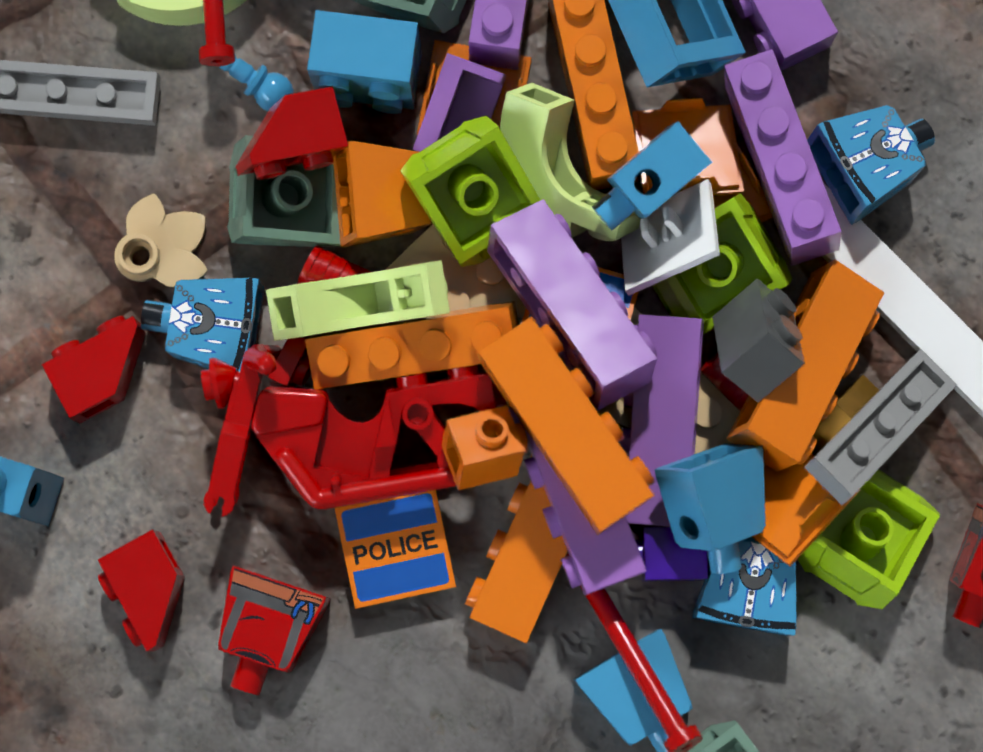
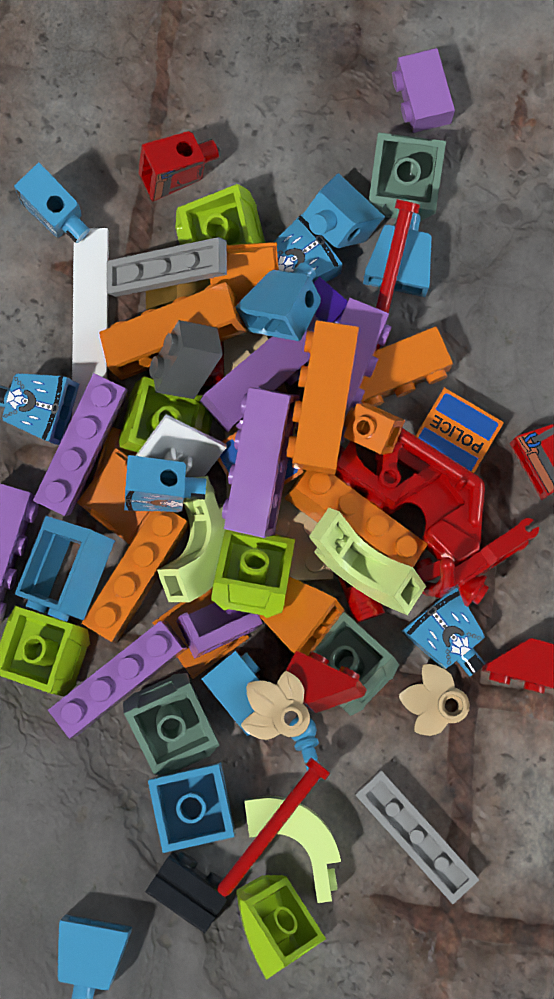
camera: 135 degrees left, 0 degrees up
(319, 62) = (271, 705): none -> tan plate
(752, 674) = (342, 214): none -> dark azure torso

